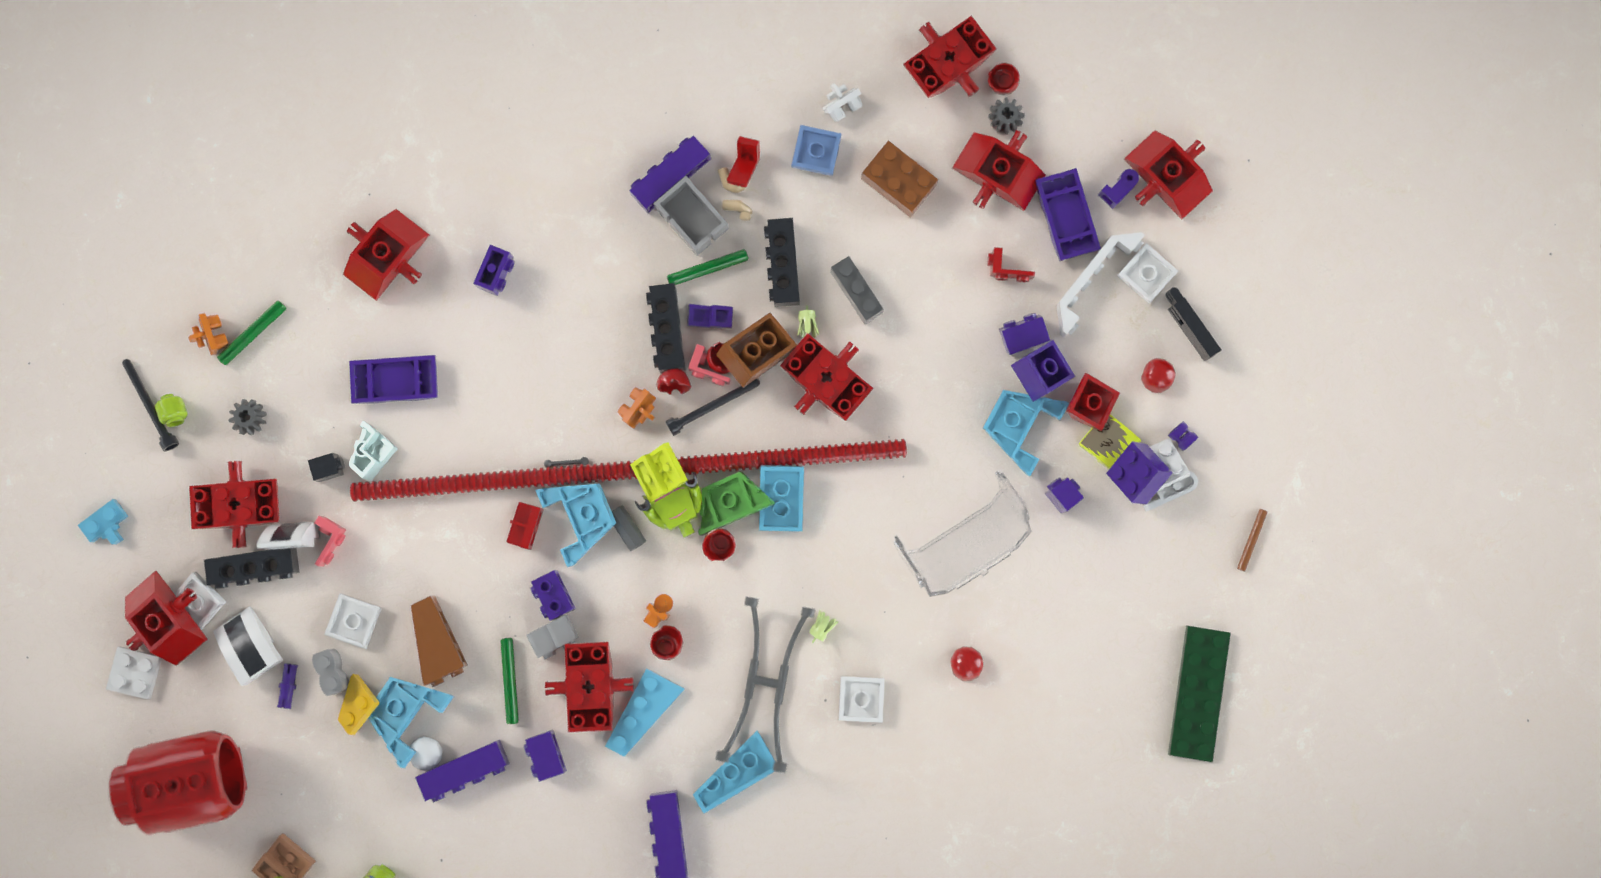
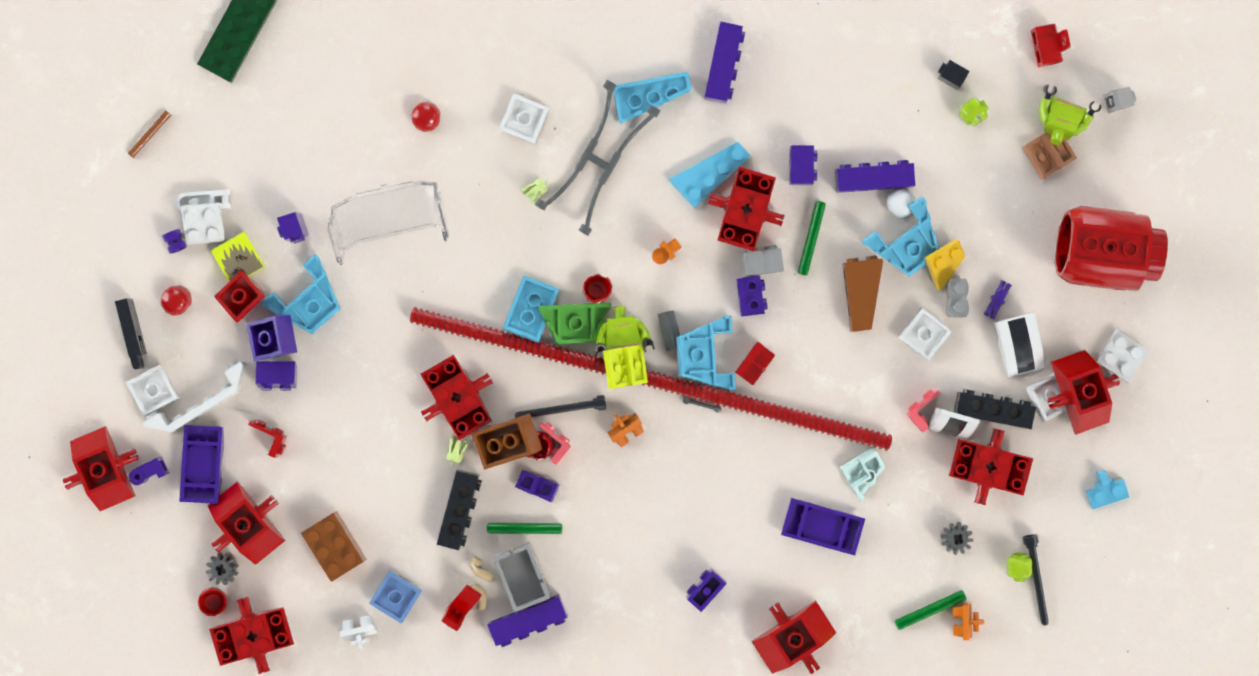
camera: 165 degrees left, 5 degrees up
(326, 467) = (904, 471): black brick -> none
(666, 294) = (567, 517): black brick -> none
(666, 643) = (669, 222): red hair -> none
(673, 380) = (585, 441): red hair -> none
(856, 290) = (404, 463): dark grey brick -> none
(1139, 473) = (223, 222): dark purple brick -> none

